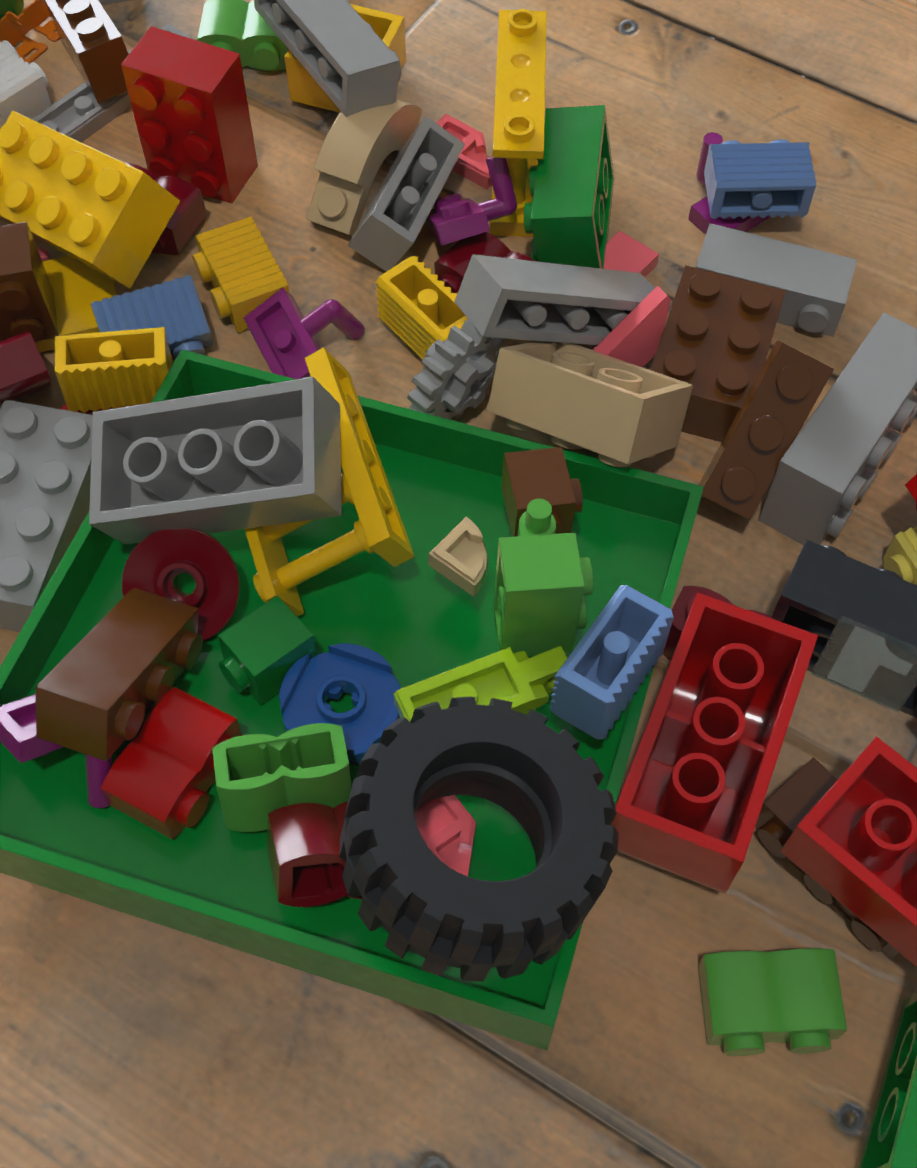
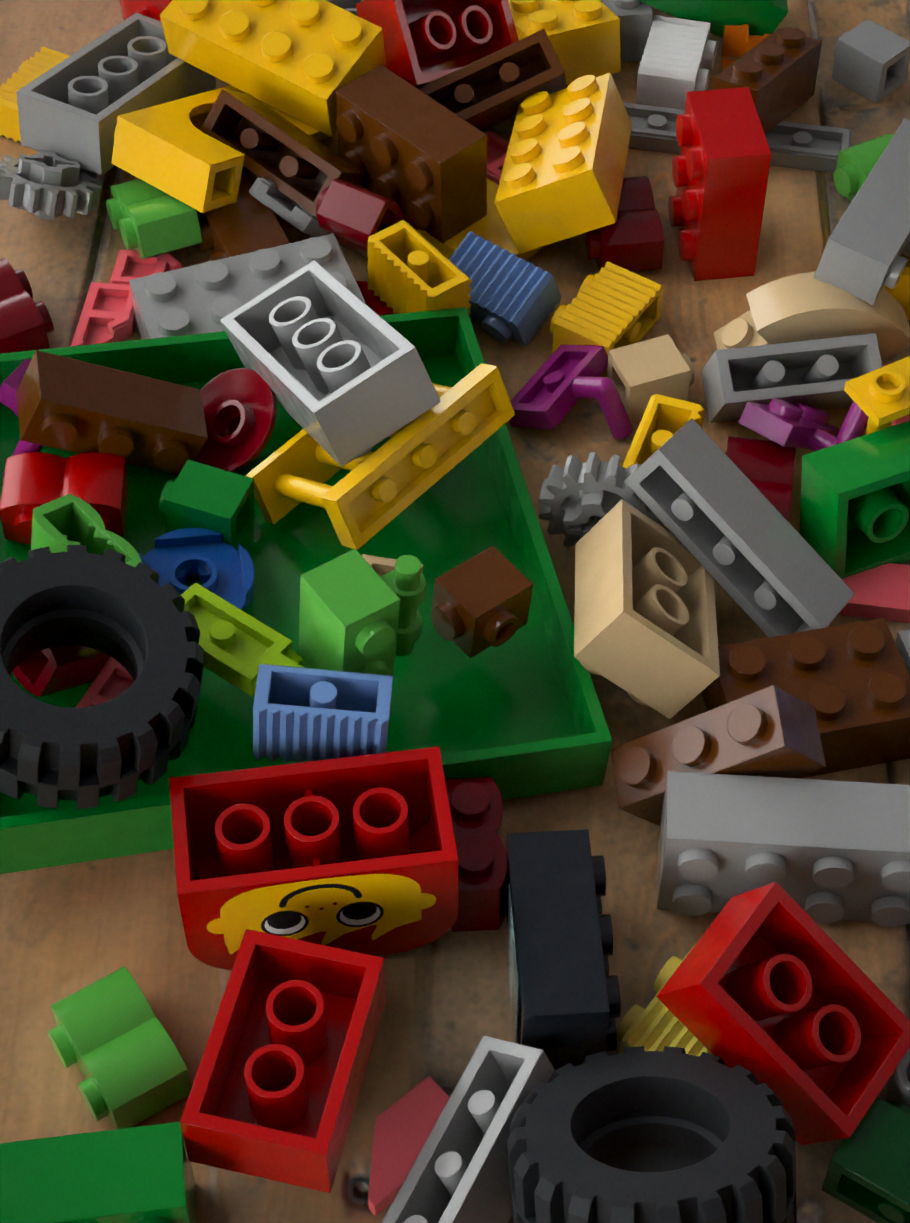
camera: 60 degrees right, 10 degrees down
(327, 274) = (648, 370): none -> tan brick
(640, 332) = (760, 615): coral tile -> none

